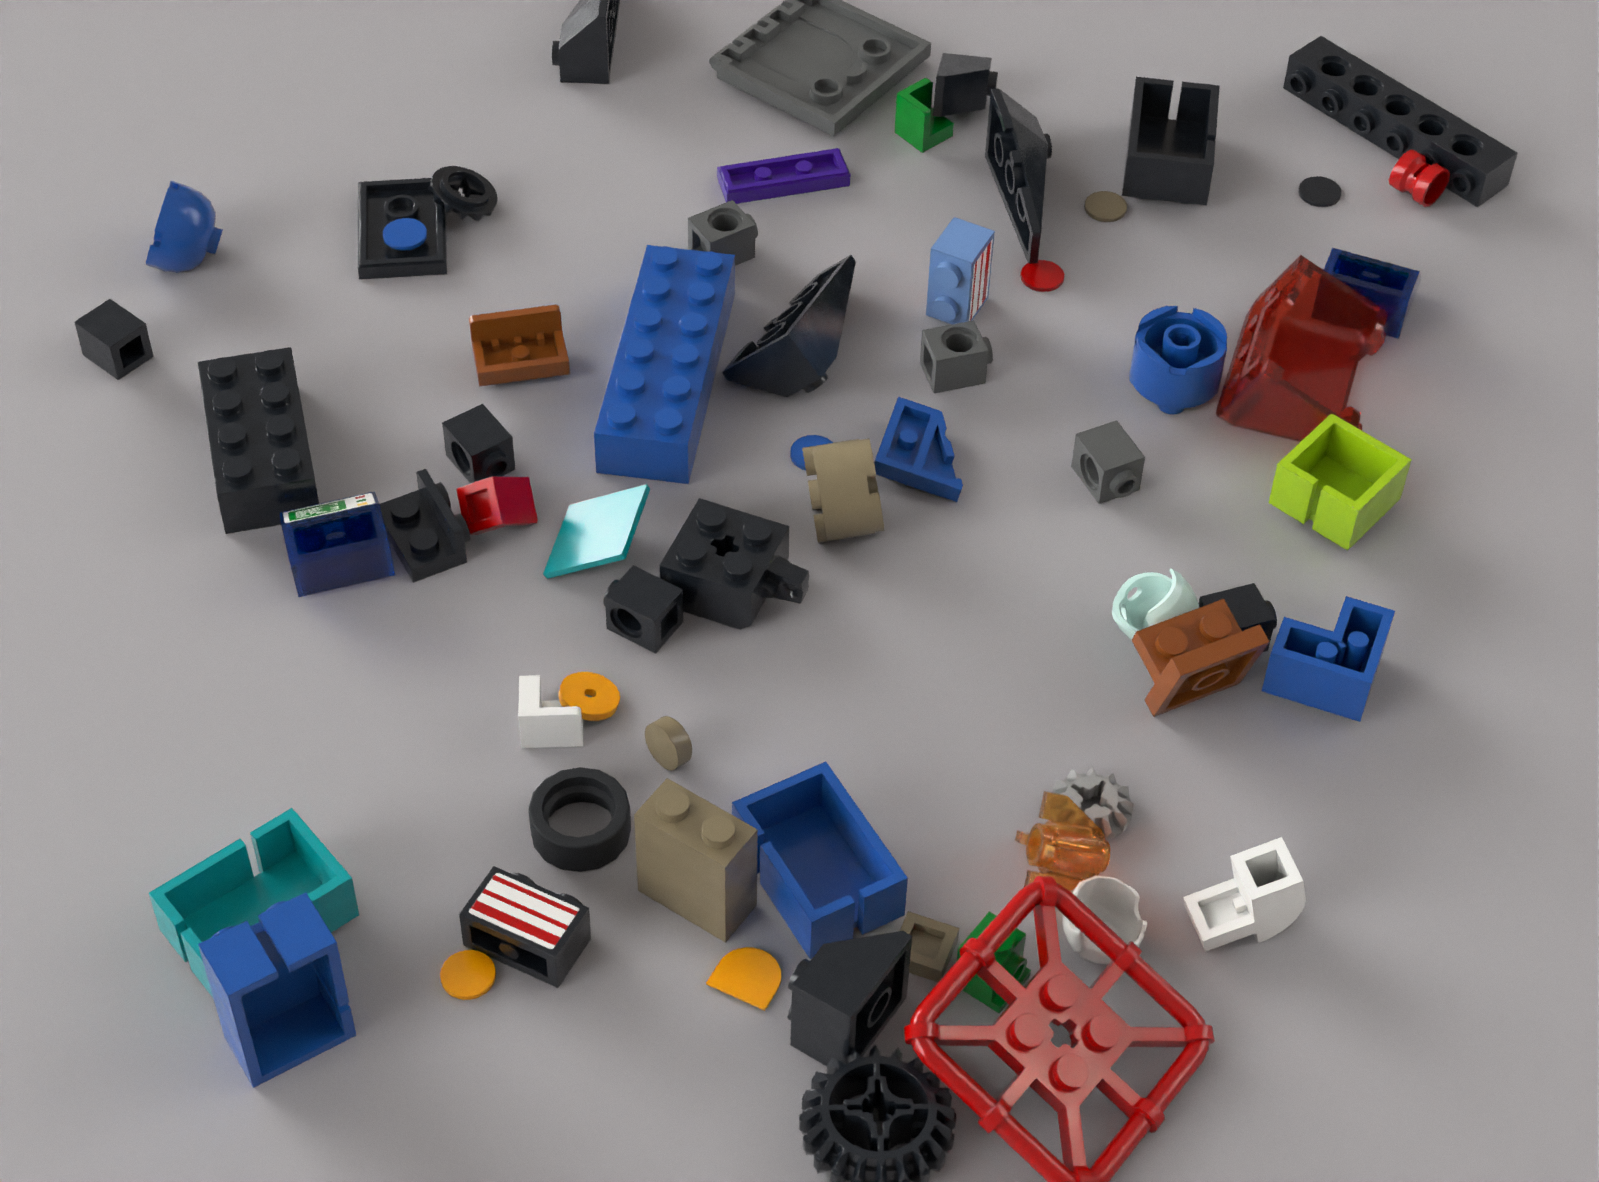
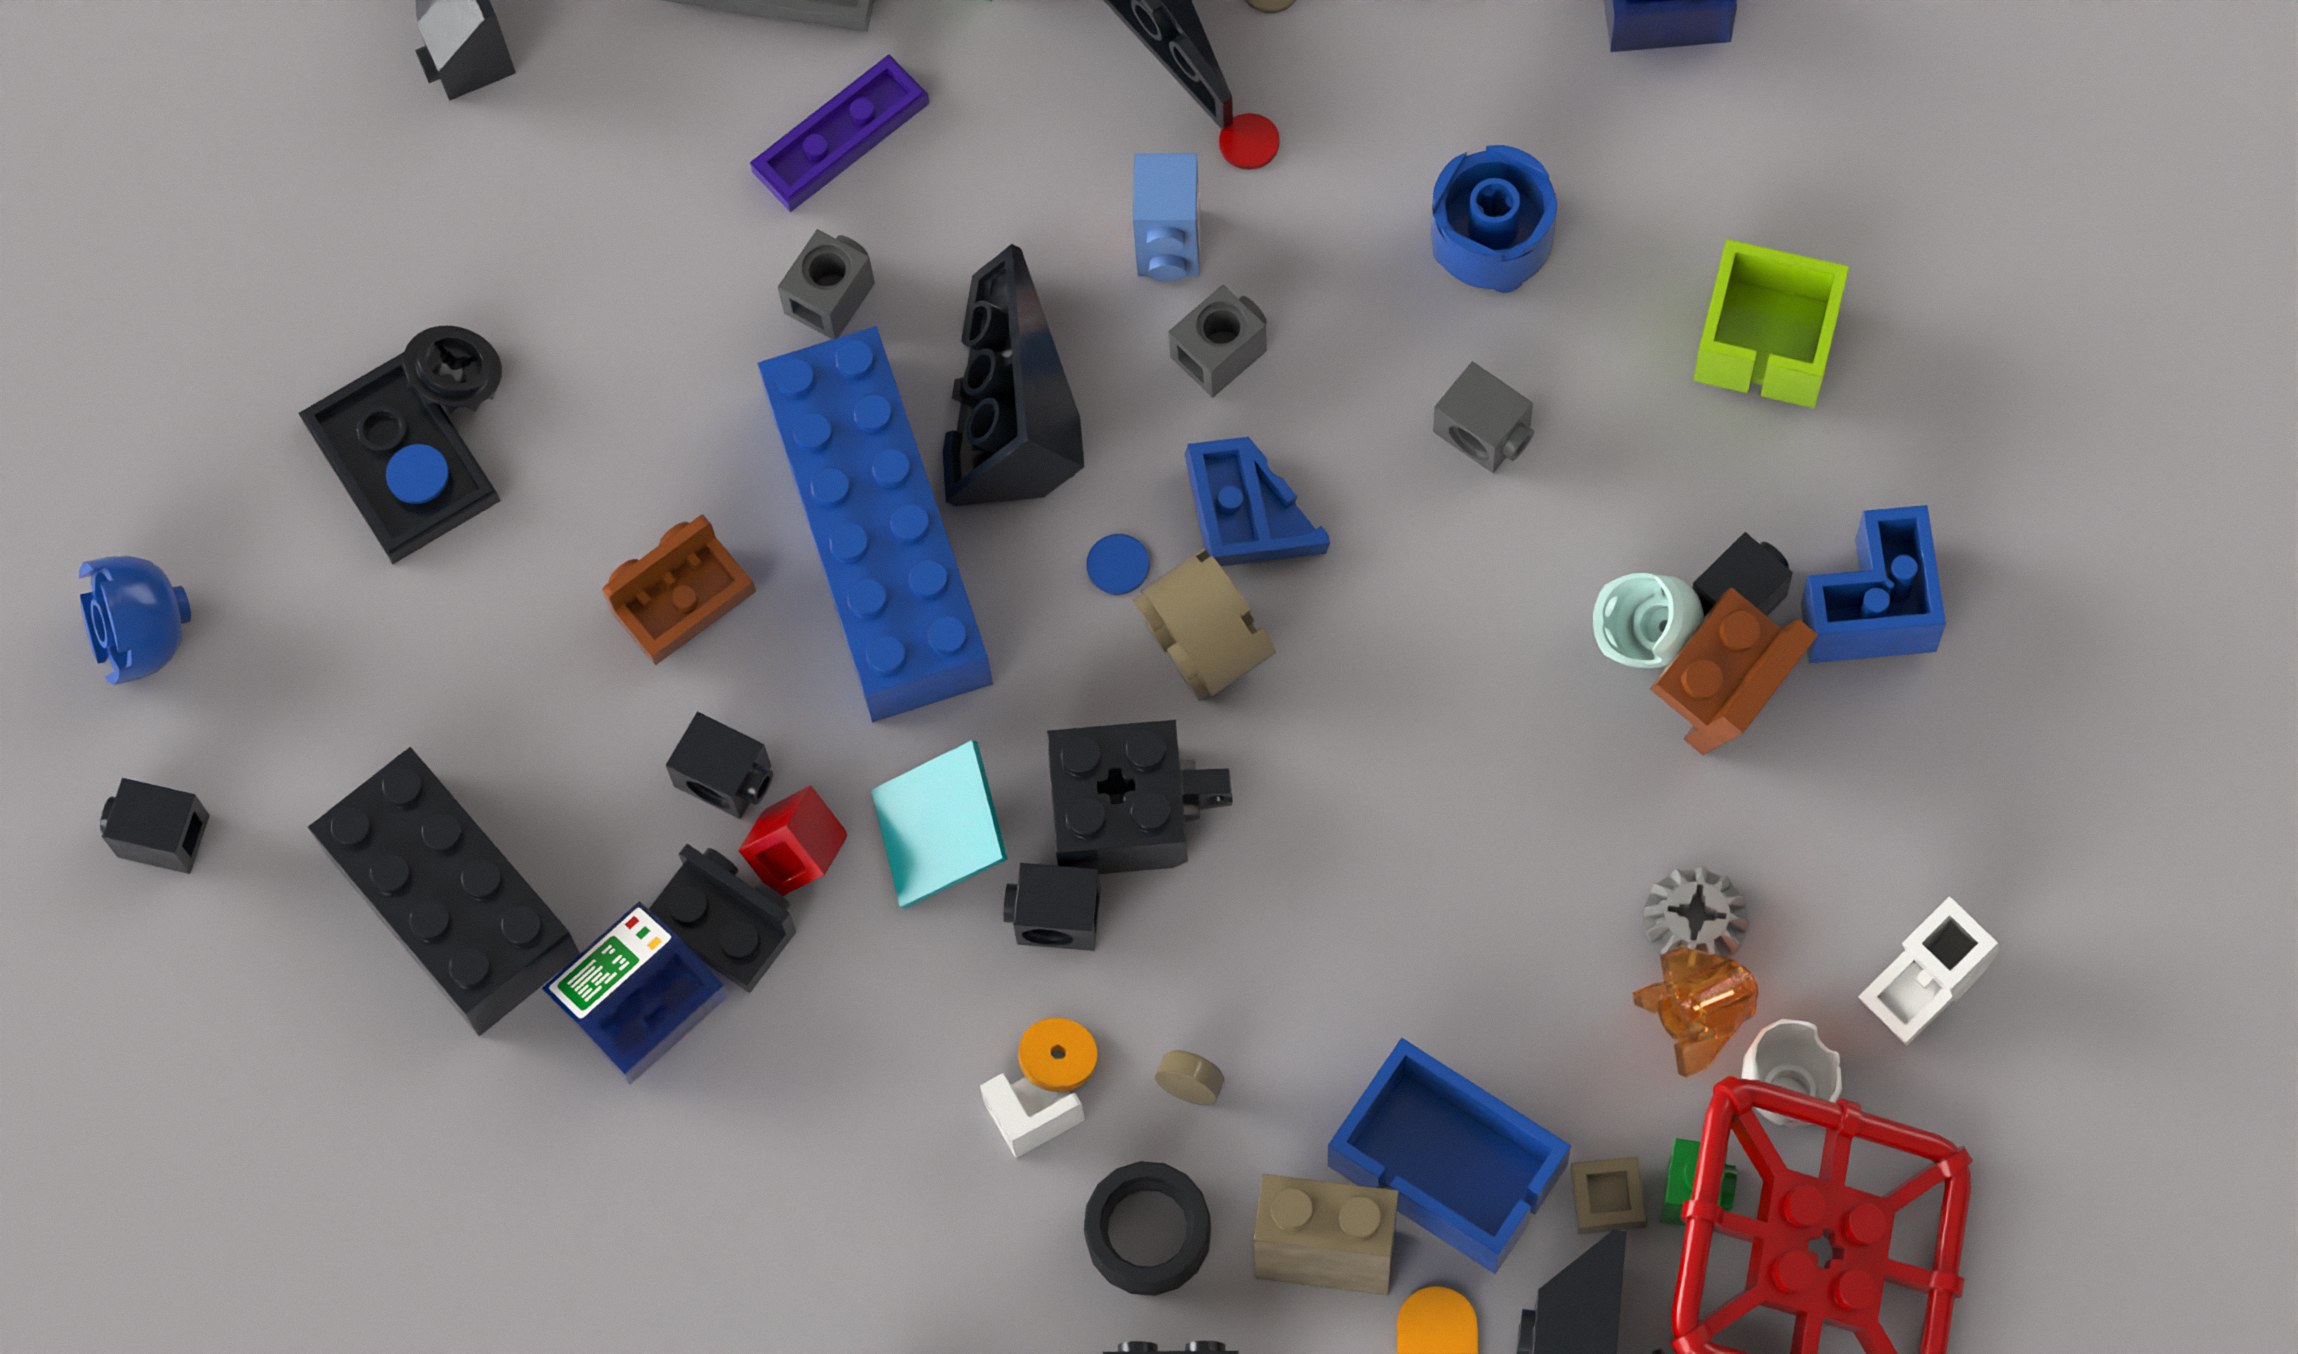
camera: 20 degrees left, 20 degrees up
(1300, 354) = (1632, 147): clear red windscreen -> none

